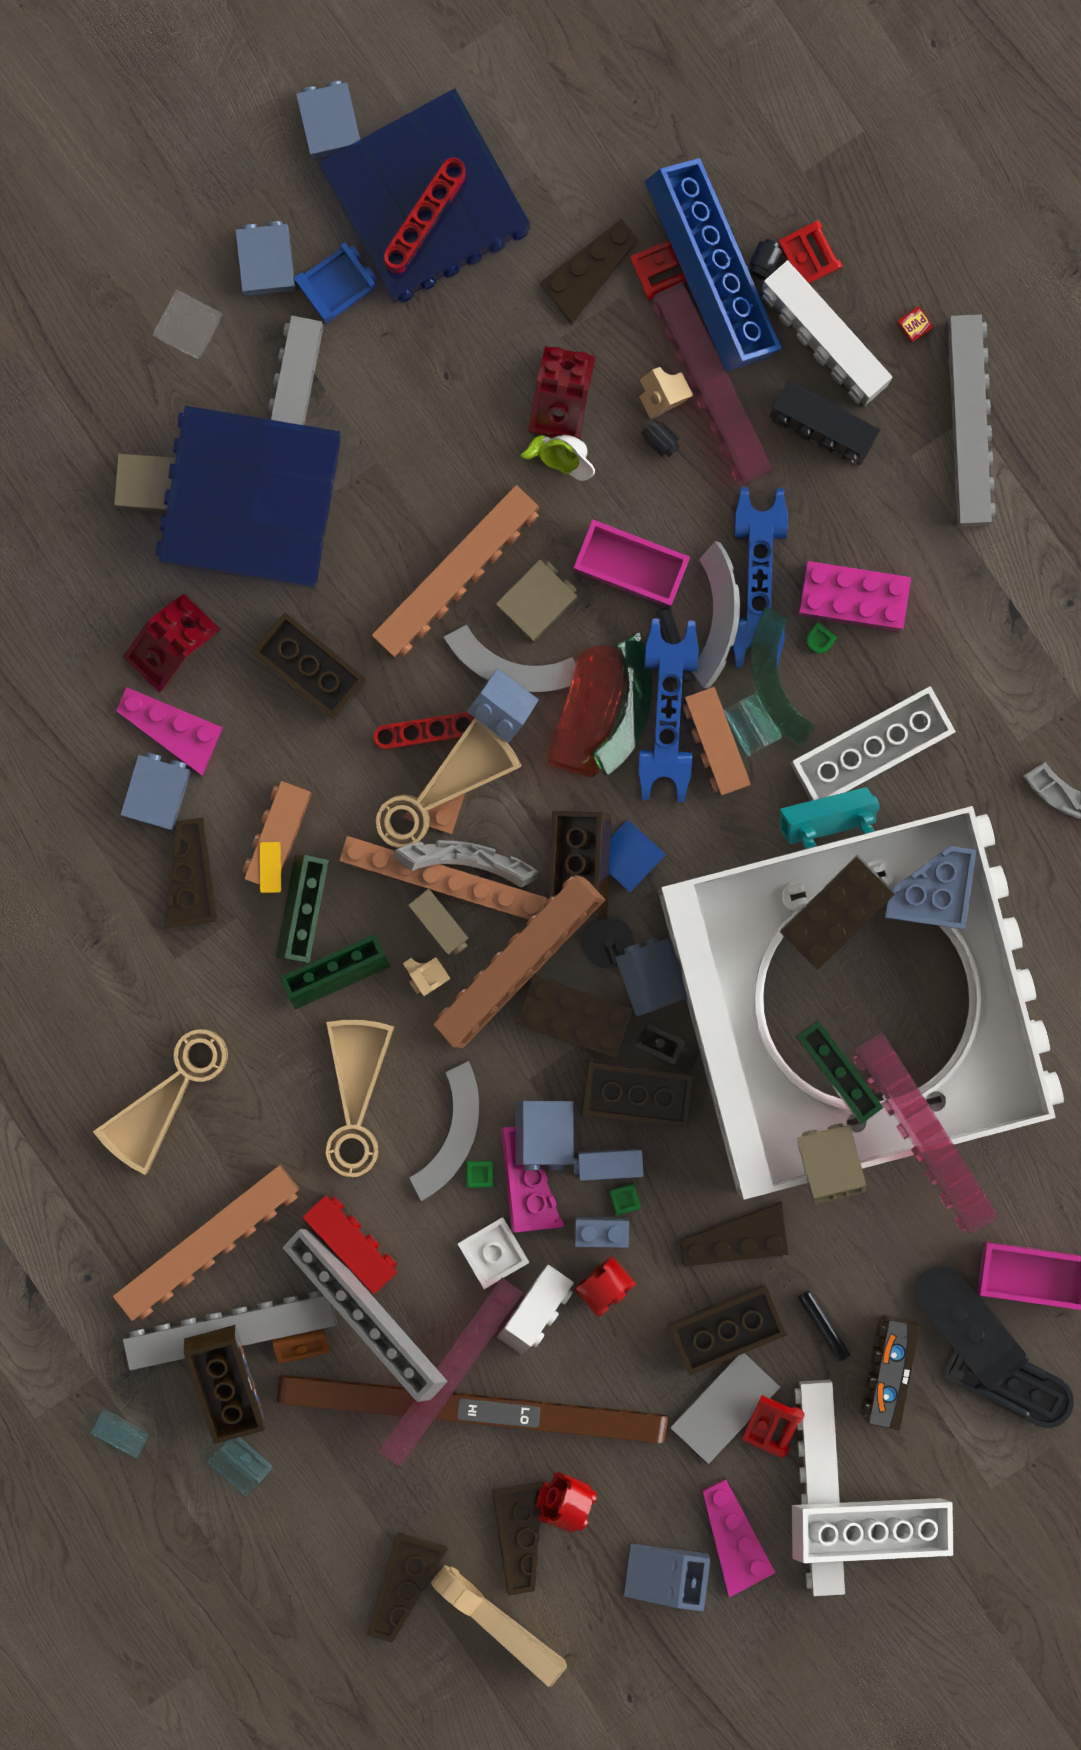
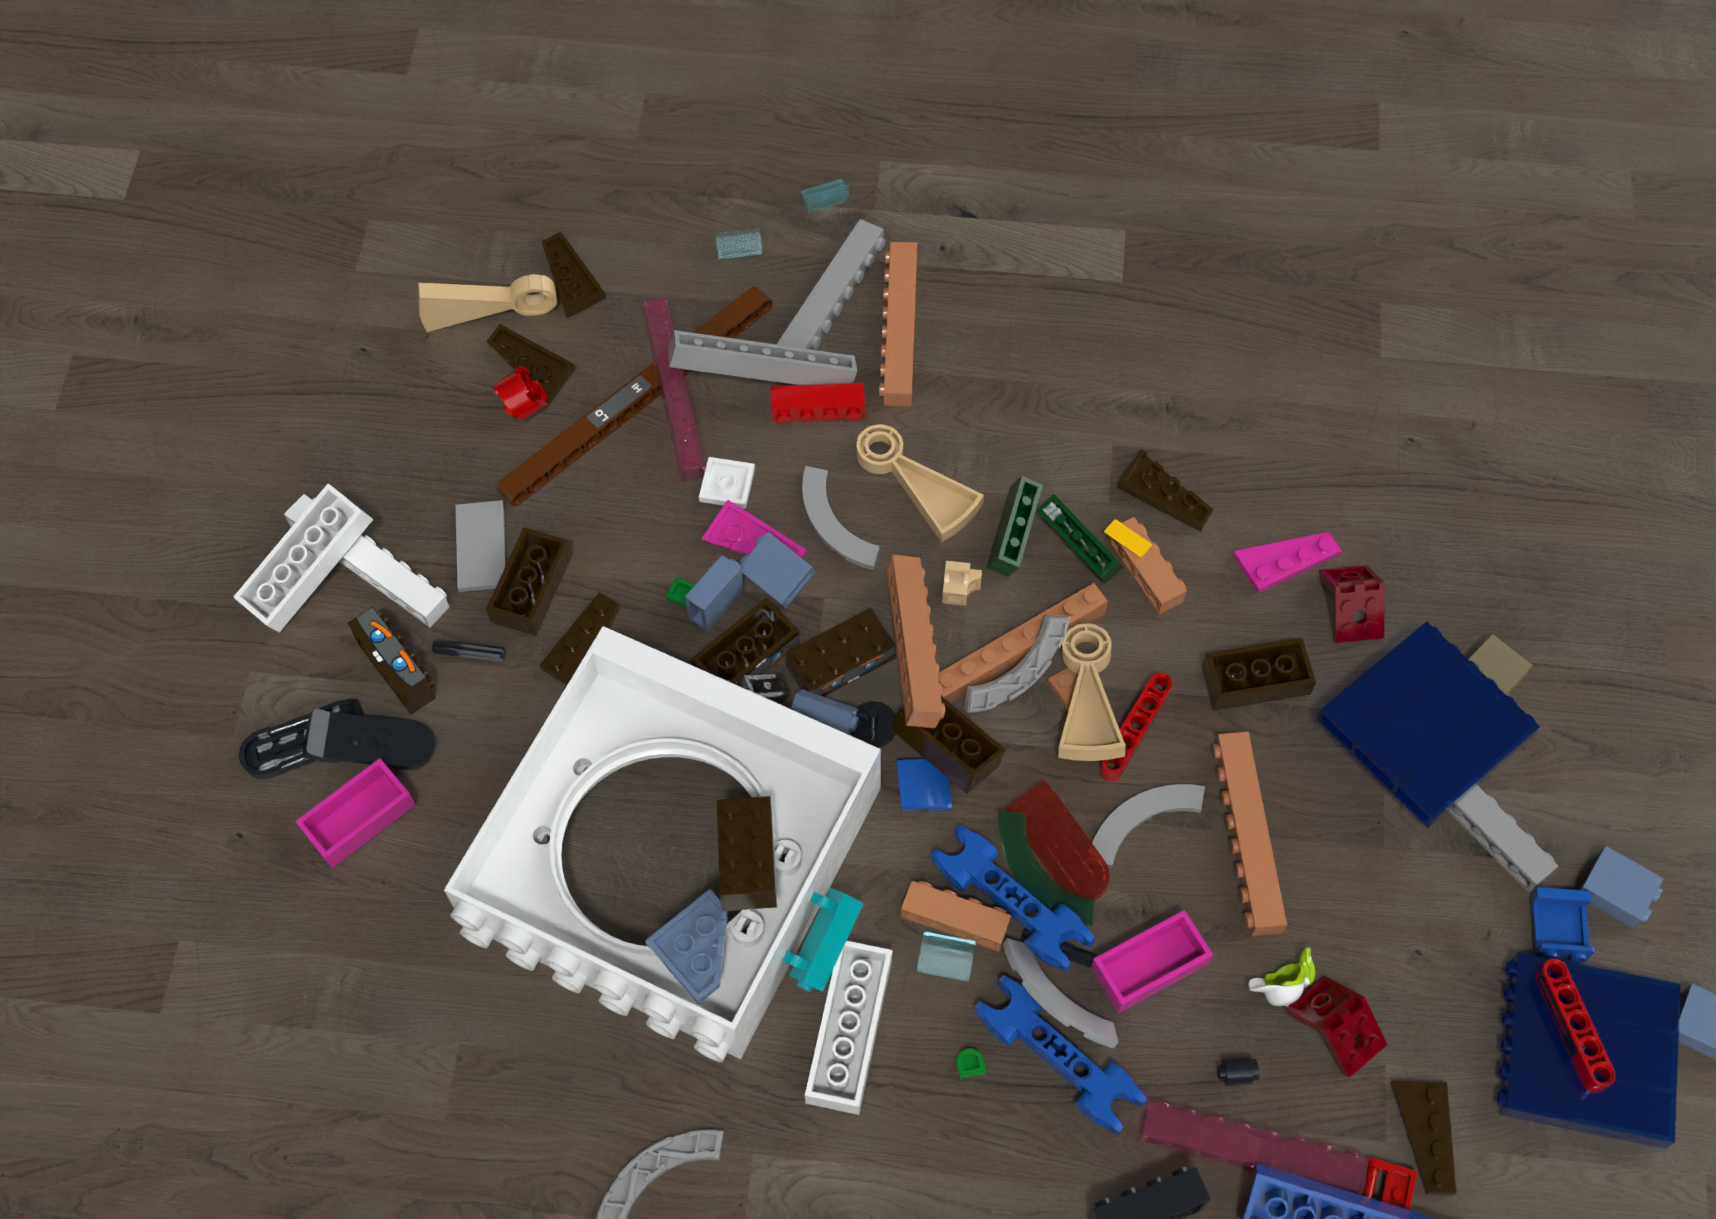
camera: 135 degrees right, 25 degrees down
(141, 1127) = (1013, 340): tan piece -> none
(156, 791) = (1246, 513): sand blue brick -> none
(187, 324) = (1603, 795): clear tile -> none
(224, 1384) = (798, 258): dark brown brick -> none
(301, 1346) = (779, 325): dark orange plate -> none
(439, 923) = (988, 614): dark tan brick -> none
(479, 1174) = (788, 516): green tile -> none
(502, 705) = (1117, 775): sand blue brick -> none
(536, 1310) = (662, 475): white wedge -> none
(537, 600) = (1179, 873): dark tan brick -> none
(601, 1231) = (674, 550): sand blue brick -> none
(604, 1286) = (635, 525): red brick -> none
(663, 392) = (1276, 1103): tan brick -> none
(667, 1576) = (409, 423): sand blue slope -> none
(737, 1545) = (387, 483): dark pink wing -> none
(765, 1422) = (443, 553): red plate -> none
(767, 680) = (968, 988): clear green tile -> none
(831, 1163) = (568, 699): dark tan brick -> none
(839, 1072) = (628, 758): dark green brick -> none
(854, 596) = (982, 1115): dark pink piece -> none
(925, 1133) = (524, 780): clear pink brick -> none

